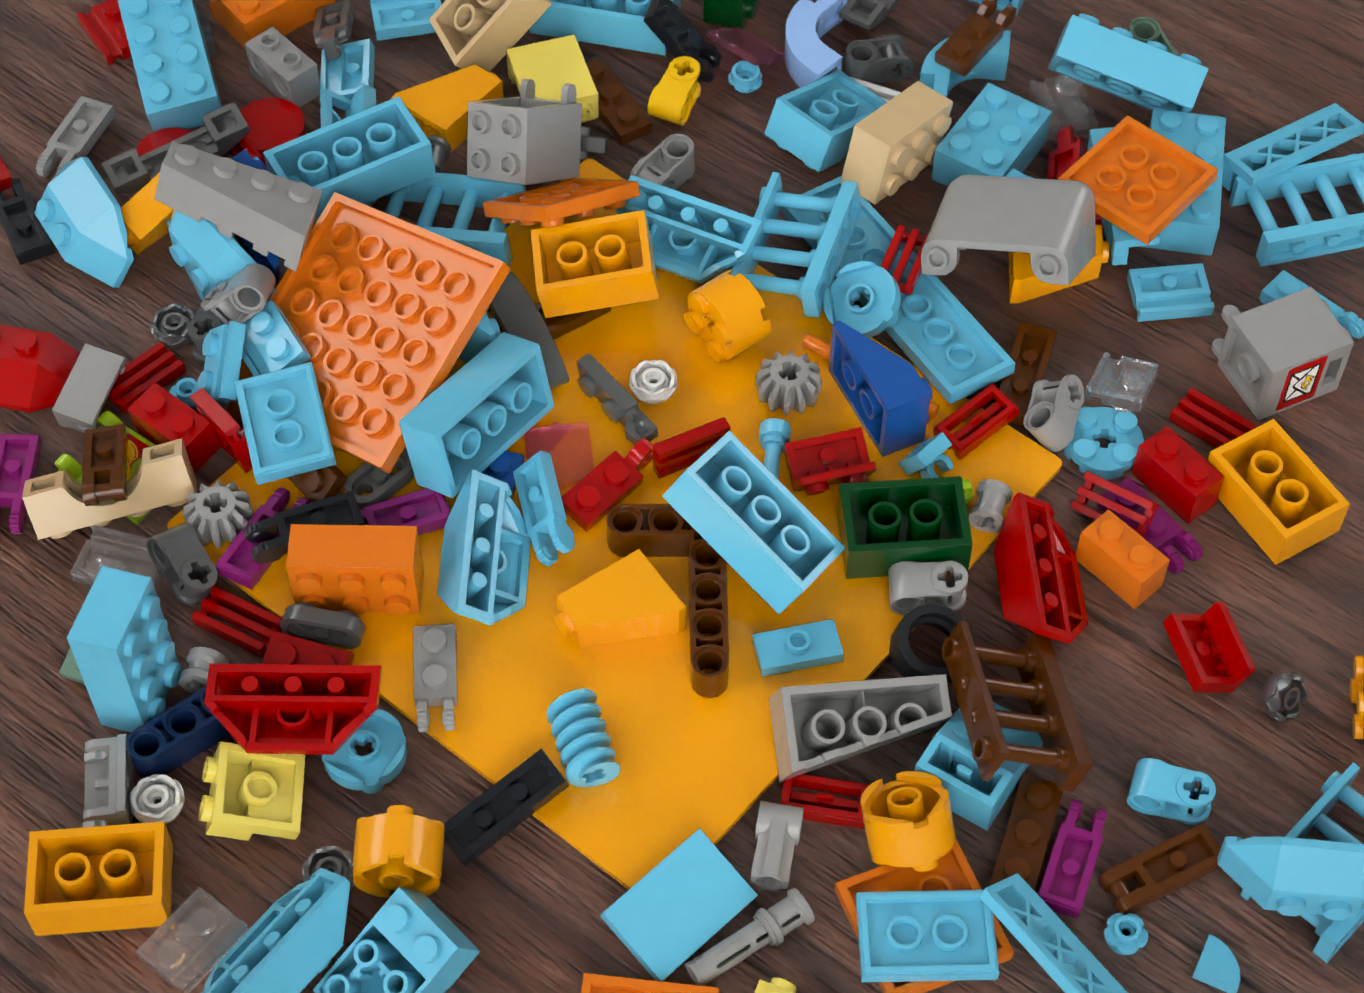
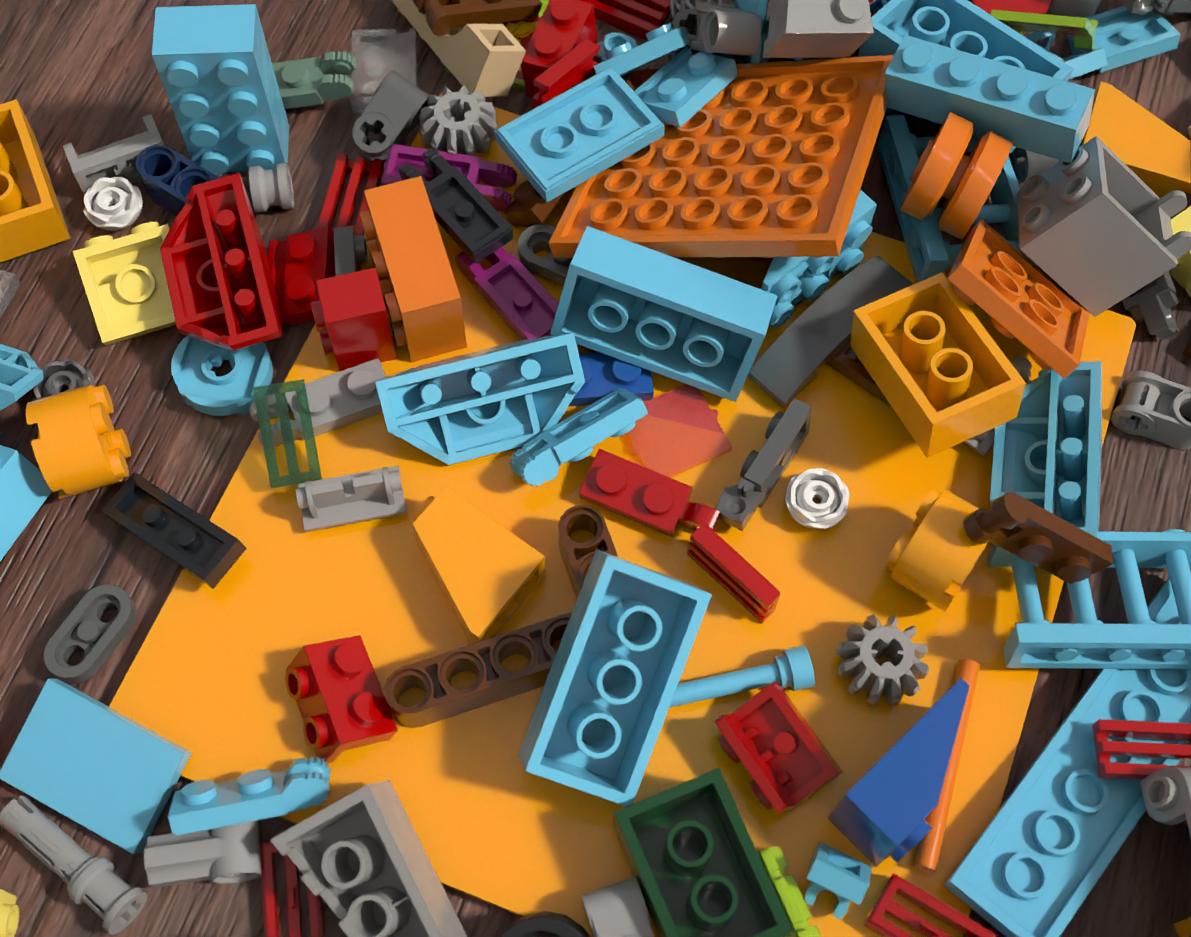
camera: 70 degrees right, 10 degrees up
(347, 90) = (1080, 28): none -> lime flag
(384, 620) = (353, 319): none -> red brick
(412, 146) = (1010, 101): none -> medium azure brick
(455, 194) = (955, 176): none -> orange wheel
(459, 704) = (294, 475): none -> clear green tile
(528, 674) = (351, 498): none -> light grey hinge
(567, 894) = (88, 633): none -> dark grey plate
(582, 739) = (271, 581): medium azure piece -> none
(691, 723) = (338, 697): none -> red bracket
(749, 792) = (250, 797): none -> medium azure hinge
(753, 248) = (1039, 538): none -> reddish brown plate
(797, 647) = (488, 796): medium azure plate -> none
(877, 284) = (1057, 741): medium azure plate -> none

